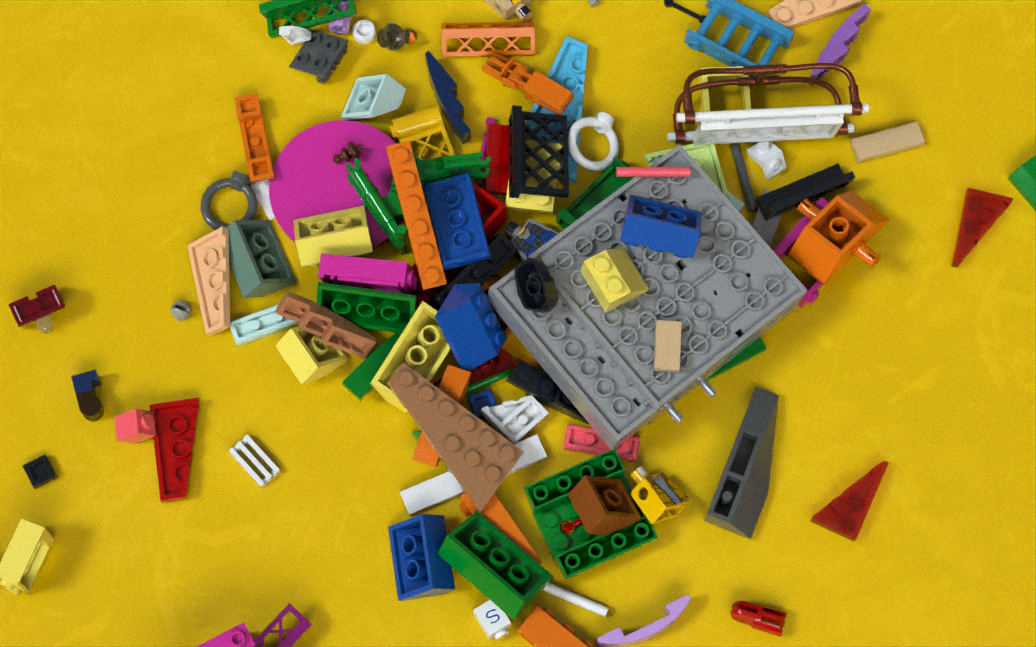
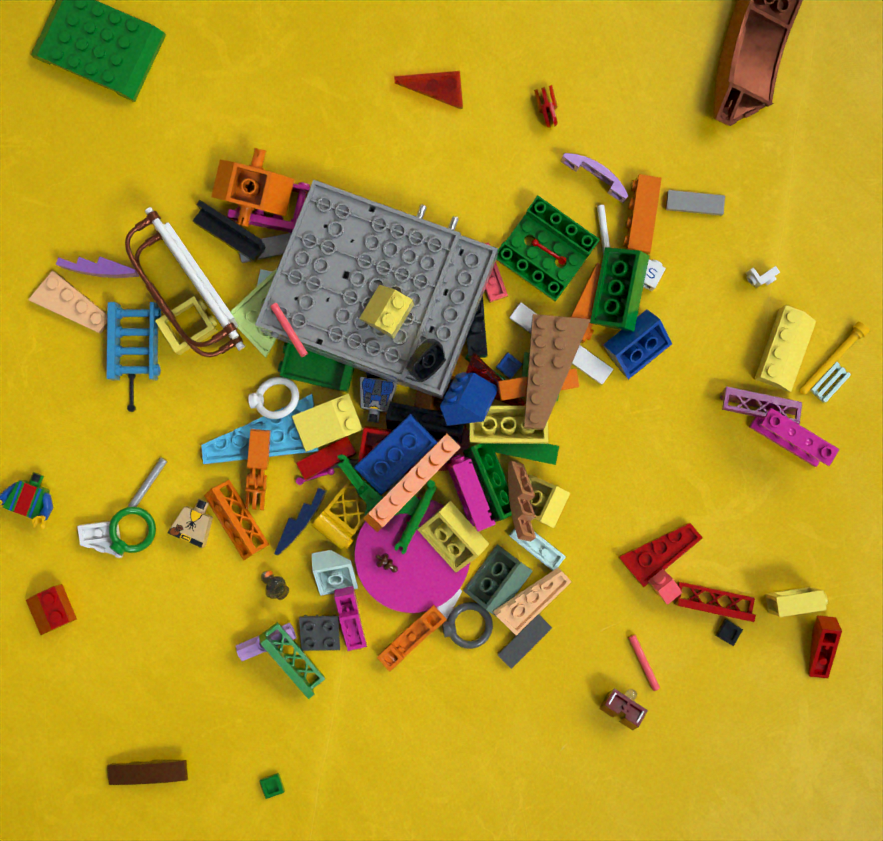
camera: 115 degrees left, 15 degrees up
(69, 361) = (644, 663): none -> coral bar
(72, 471) = (716, 609): none -> red fence
(86, 395) = (662, 633): leg -> none
(175, 251) = (524, 641): none -> dark grey tile
(178, 314) = (559, 611): light grey hinge -> none
(241, 446) = (645, 494): white tile -> none
(295, 34) = (315, 659): white tile -> none
(315, 90) = (350, 618): none -> dark pink slope
(364, 31) = (281, 612): white tile -> none
(515, 418) = (507, 337): white wing -> none
(518, 156) = (316, 443): black fence -> none
(603, 505) = (538, 241): dark orange slope -> none
(657, 496) = (508, 212): yellow torso -> none
(661, 226) = (328, 299): blue slope -> none
(667, 346) = (413, 249): tan tile -> none
(743, 177) = (241, 280): dark grey bar -> none
(747, 470) = (452, 166): dark grey wedge -> none
(768, 157) = (216, 271): white bracket -> none
(887, 142) = (155, 196): tan tile -> none
(977, 217) = (175, 106): clear red wing -> none

